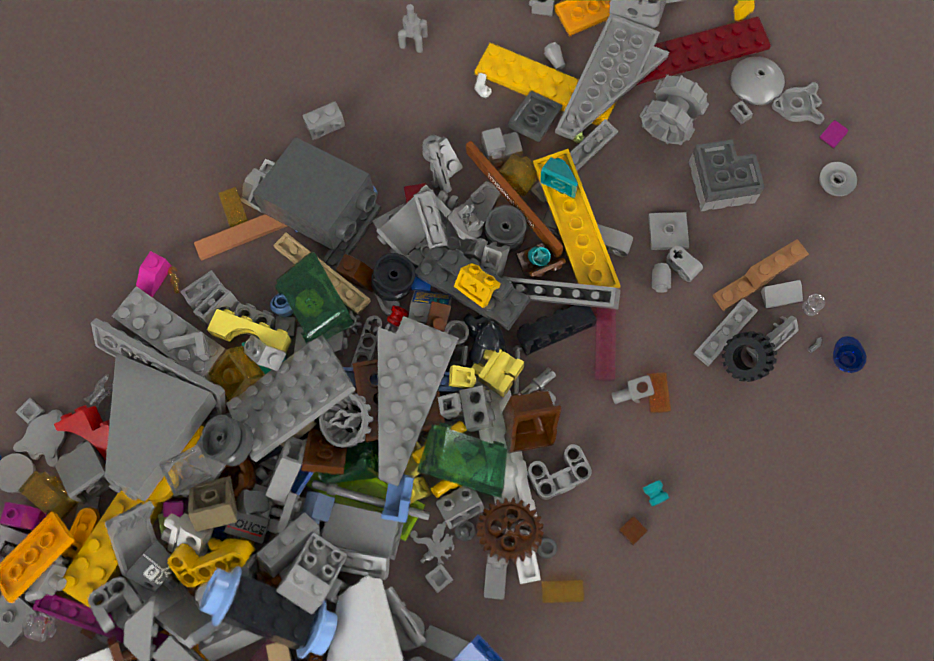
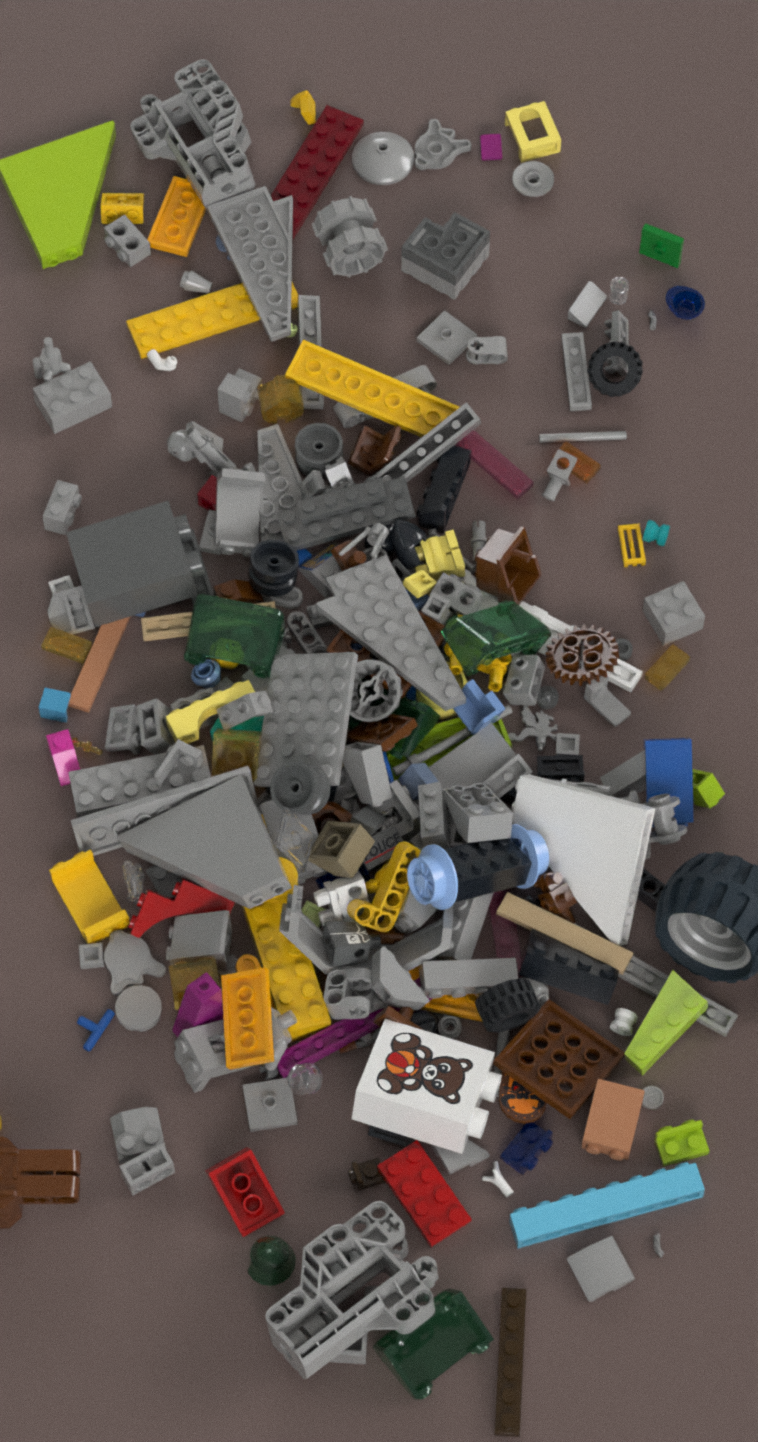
camera: 50 degrees left, 10 degrees down
(68, 375) = (88, 897): none -> yellow panel
(176, 506) = (308, 896): magenta slope -> none
(182, 235) = (54, 705): none -> dark azure panel
(397, 315) = (310, 595): red wheel -> none
(405, 60) = (72, 397): none -> light grey brick
(416, 590) = (559, 767): none -> black bracket
(431, 219) = (254, 493): light grey tile -> none
(466, 222) = (290, 473): light grey plate -> none
(468, 320) = (376, 537): none -> light grey plant
(476, 284) = (354, 502): yellow bracket -> none
(514, 199) = (298, 419): dark orange tile -> none
(535, 116) = (238, 343): dark grey plate -> none
(539, 256) = (371, 444): teal wheel -> none
(559, 177) = (326, 364): teal slope -> none
(562, 480) = (578, 590): light grey beam -> none
(605, 560) = (673, 613): none -> light grey brick
(622, 496) = (633, 561): none -> yellow tile
(633, 530) = (668, 575): reddish brown tile -> none
(661, 277) = (482, 376): light grey brick -> none
(682, 379) = (583, 436): none -> light grey bar
(741, 112) = (399, 194): light grey piece -> none
(760, 274) = (555, 304): medium nougat bracket -> none
(866, 162) = (539, 147): none -> light yellow panel
(875, 301) = (661, 245): none -> green plate

